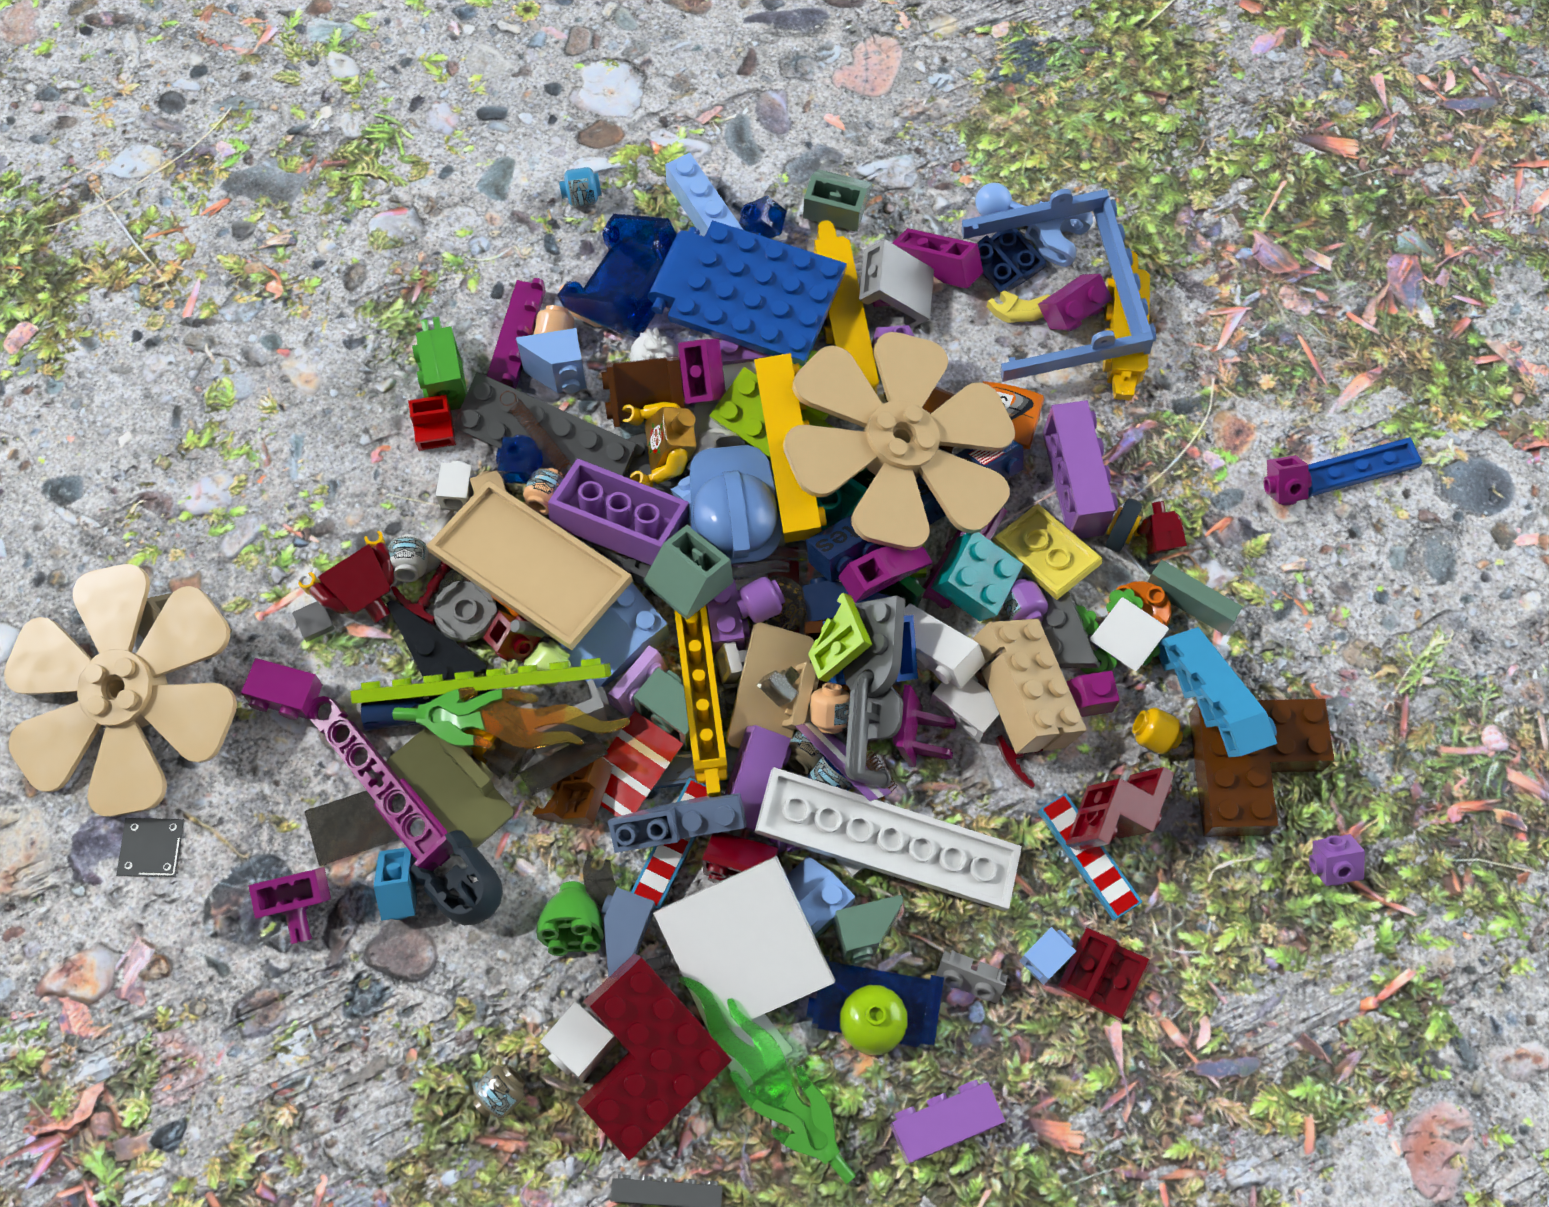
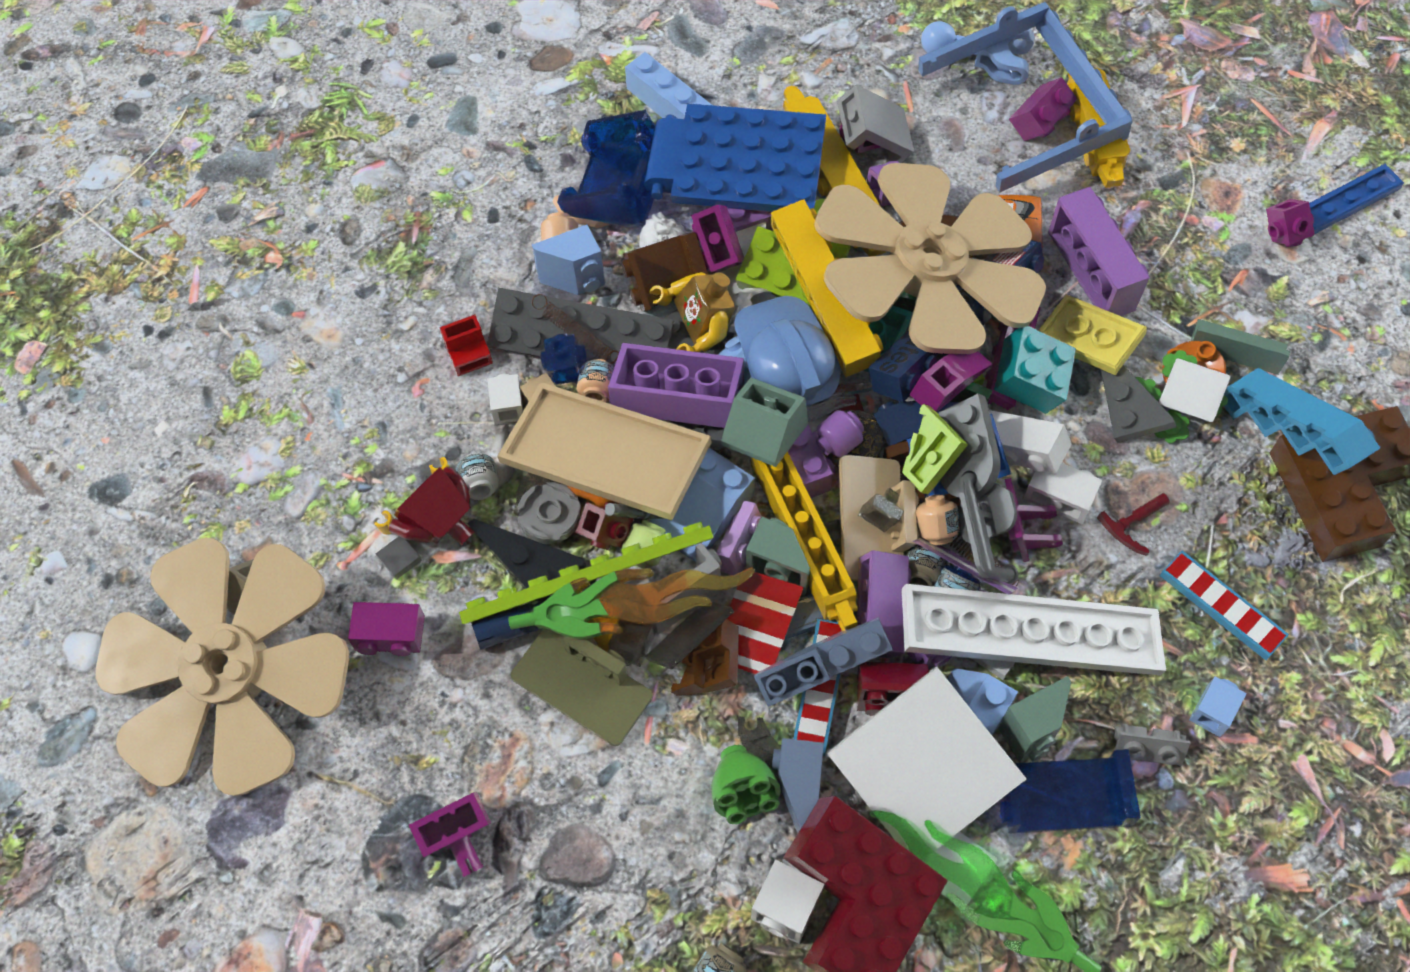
camera: 10 degrees left, 5 degrees down
(150, 847) = (290, 816): dark grey sticker -> none
(347, 827) = (493, 745): clear smoke piece -> none
(395, 884) = (555, 791): dark azure slope -> none
(423, 603) = (508, 499): dark red piece -> none
(431, 848) = (584, 741): piece -> none
(439, 363) = (461, 287): bright green brick -> none
(518, 322) = (522, 234): magenta hinge -> none
(580, 187) = (548, 105): dark azure head -> none
(730, 662) = (825, 500): white tile -> none
(763, 217) = (730, 92): clear blue brick -> none
(836, 199) = (793, 66): sand green slope -> none
(873, 1020) = (1070, 808): lime cylinder -> none
(946, 1121) = (1173, 890): medium lavender brick -> none
(953, 260) = (919, 95): magenta slope -> none
(1009, 259) = (965, 87): dark blue slope -> none
(1016, 309) = (988, 130): light yellow piece -> none
(1025, 601) = (1088, 385): medium lavender head -> none
(1028, 686) = (1120, 458): tan piece -> none
(1094, 693) = (1169, 458): magenta slope -> none
(1104, 974) = (1276, 712): dark red slope -> none
(1120, 808) = (1243, 549): dark red bracket -> none
(1123, 525) = (1156, 294): black wheel -> none
(1157, 730) = (1249, 472): yellow head -> none
(1162, 530) = (1191, 292): dark red piece -> none

